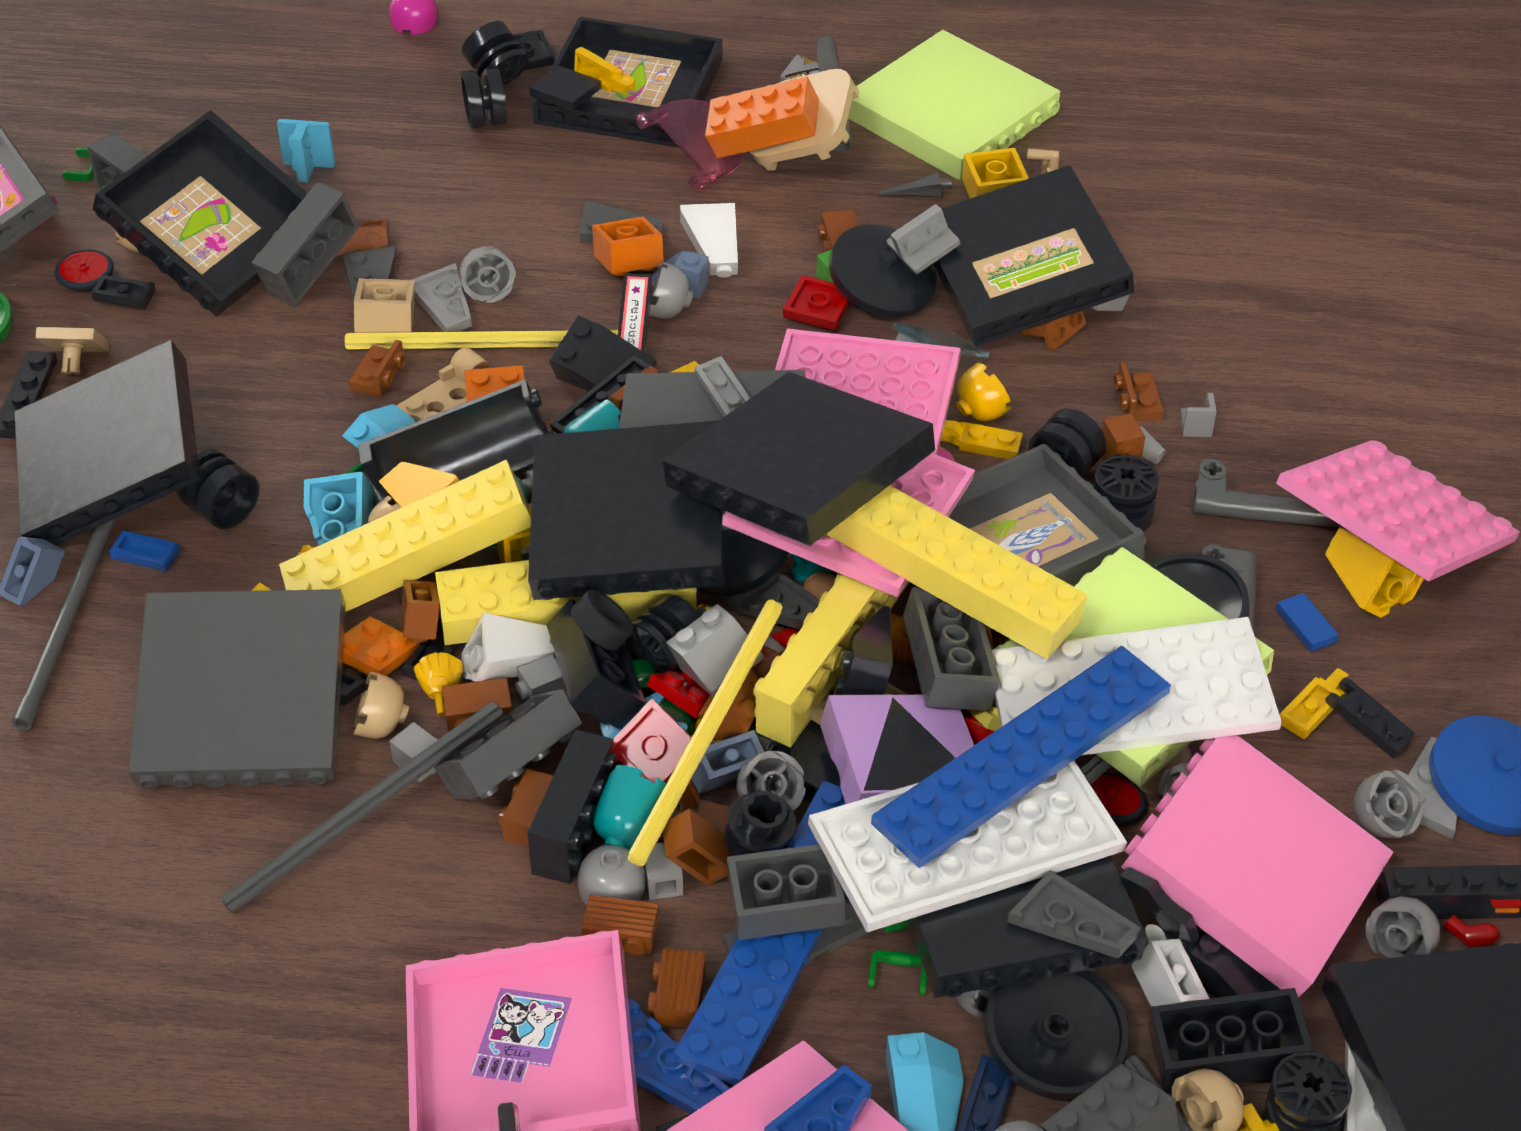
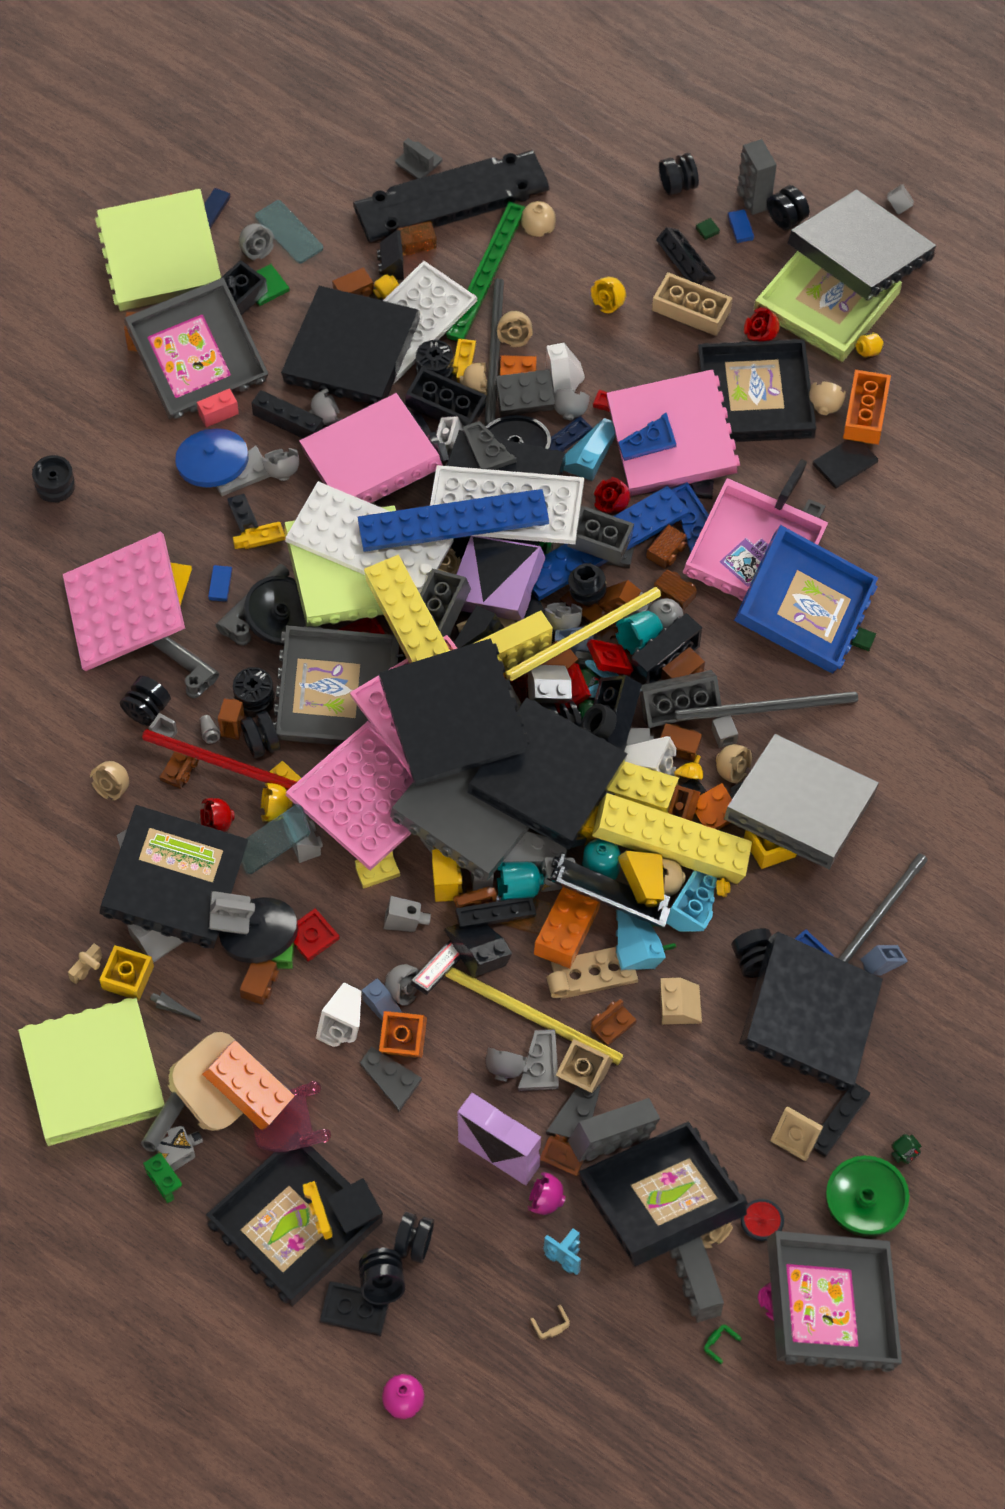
camera: 150 degrees left, 15 degrees up
(123, 291) = (745, 1180): black plate -> none
(254, 1006) = (864, 639): none -> dark green tile
(286, 106) = (555, 1330): none -> tan piece
(301, 416) = (679, 1001): none -> tan slope
(358, 186) = (546, 1195): none -> dark pink cylinder
(379, 988) = (807, 599): none -> blue panel
(437, 174) = (499, 1139): none -> lavender tile
(721, 385) = (447, 811): light grey plate -> none
(722, 340) = (404, 915): none -> light grey torso
(787, 47) = (162, 1176): none -> green bracket
(822, 1014) = (612, 496): none -> red cylinder
(1039, 353) = (216, 814): none -> red cylinder
(1077, 397) = (216, 759): none -> red axle
(1203, 334) = (110, 779): none -> tan cylinder
(1249, 421) = (145, 700): none -> black wheel
(1472, 935) = (290, 397): red arm -> none

